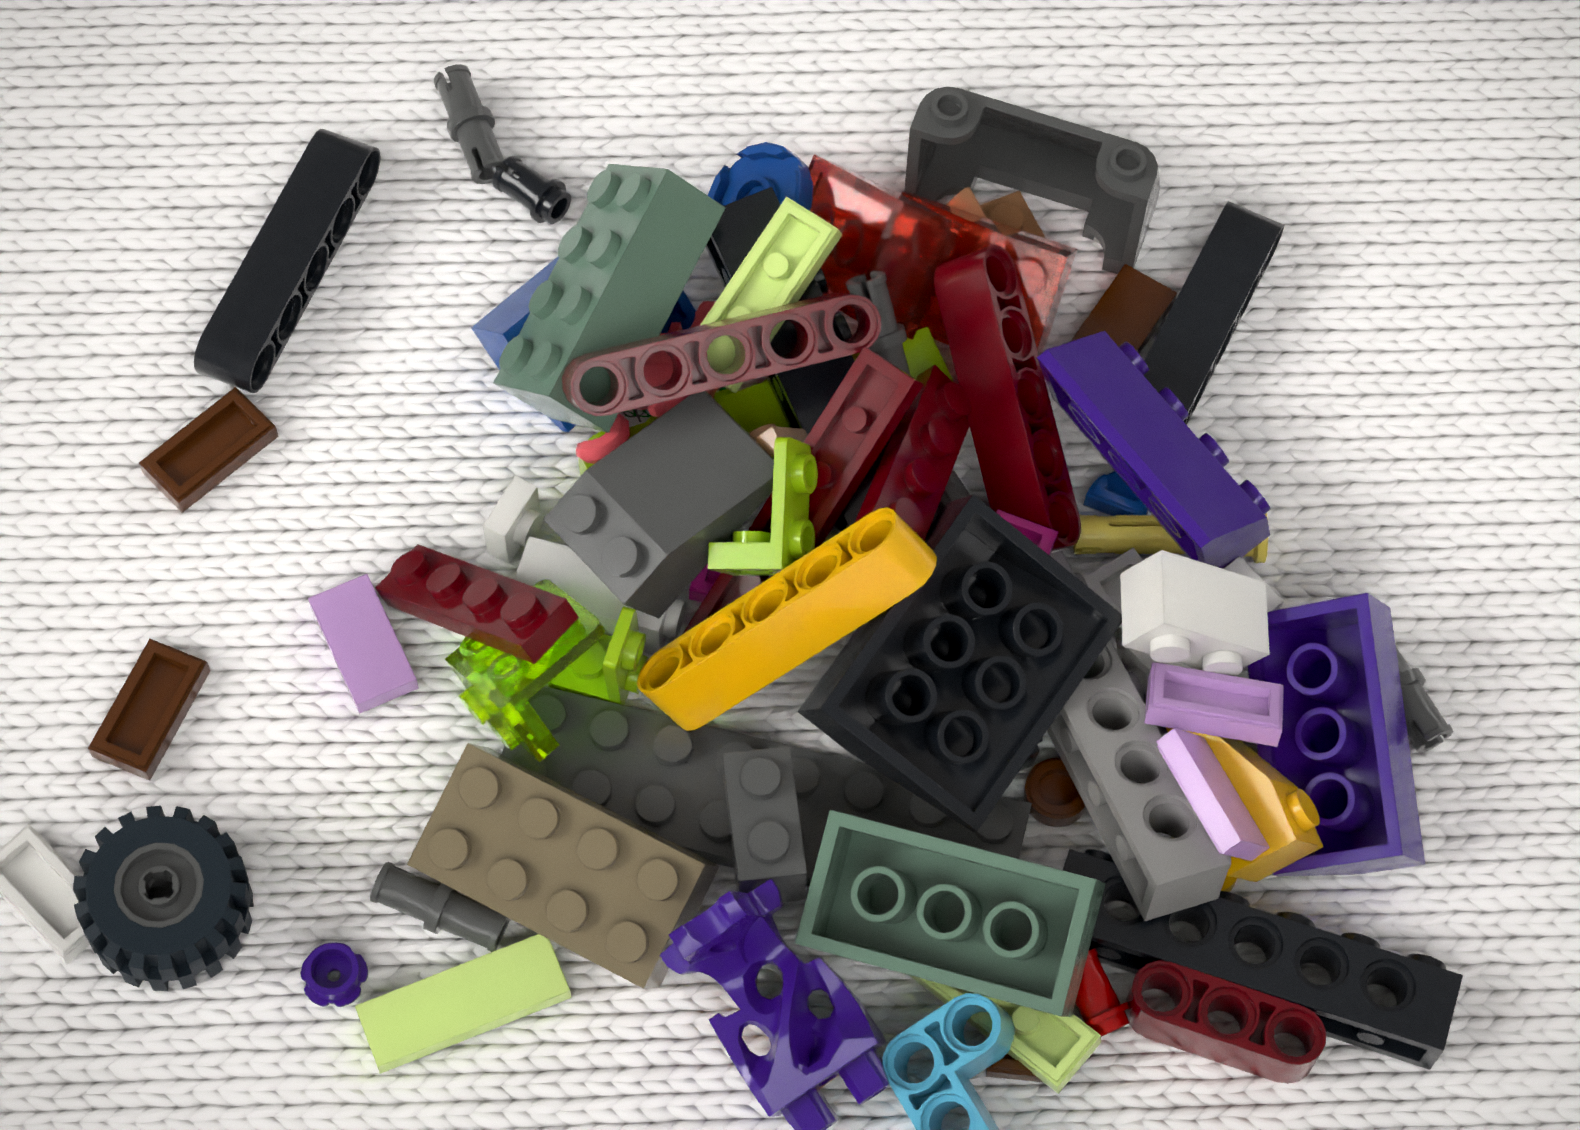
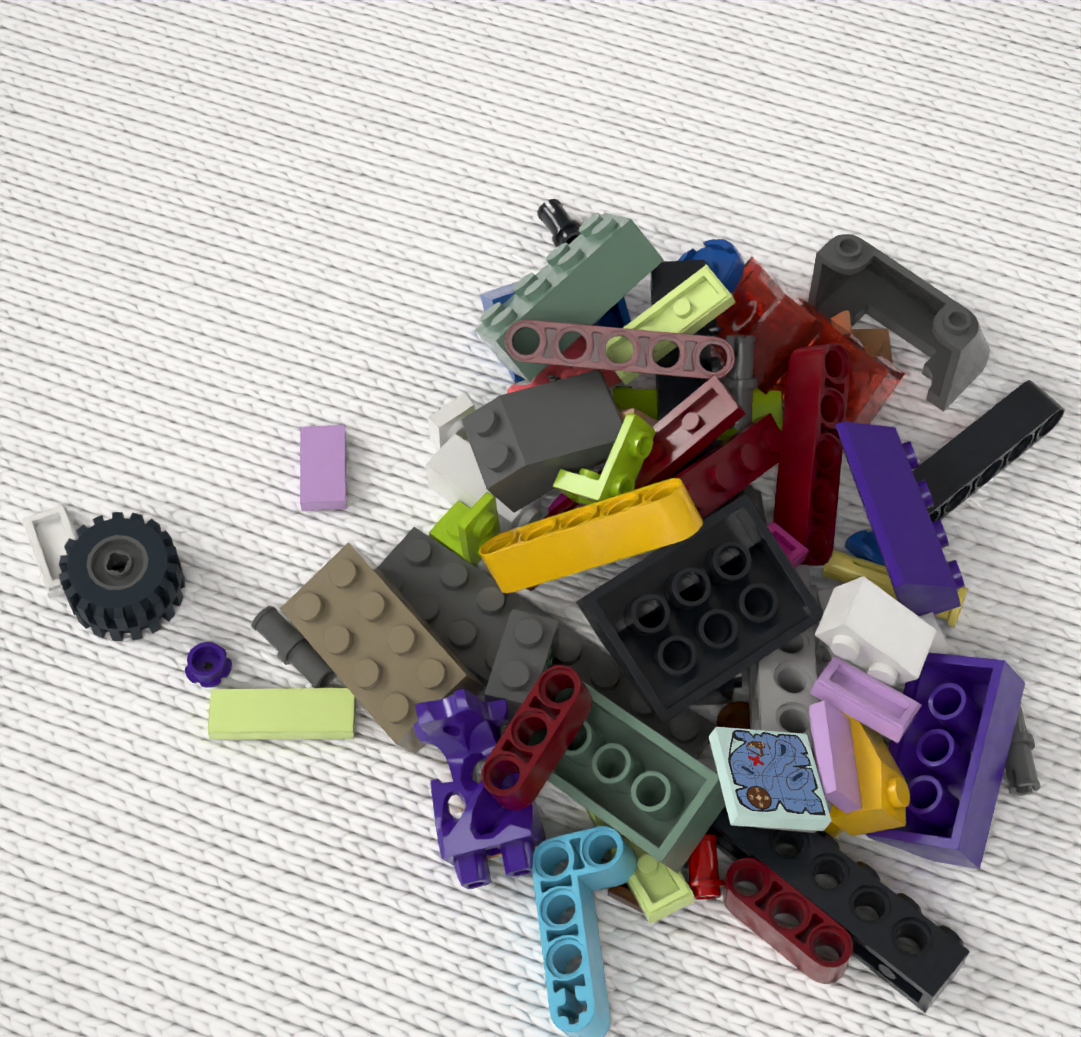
camera: 25 degrees right, 5 degrees down
(149, 709) = (172, 461): reddish brown tile -> none
(208, 449) = (283, 316): reddish brown tile -> none
(287, 261) = (383, 217): black beam -> none
(470, 123) = (539, 170): dark grey pin -> none
(477, 603) = (398, 460): dark red plate -> none
(502, 683) = (407, 500): clear neon green bracket -> none
(828, 884) = (535, 714): none -> dark red beam
(1129, 309) = (930, 429): reddish brown tile -> none
(1154, 858) = (769, 779): none -> tile

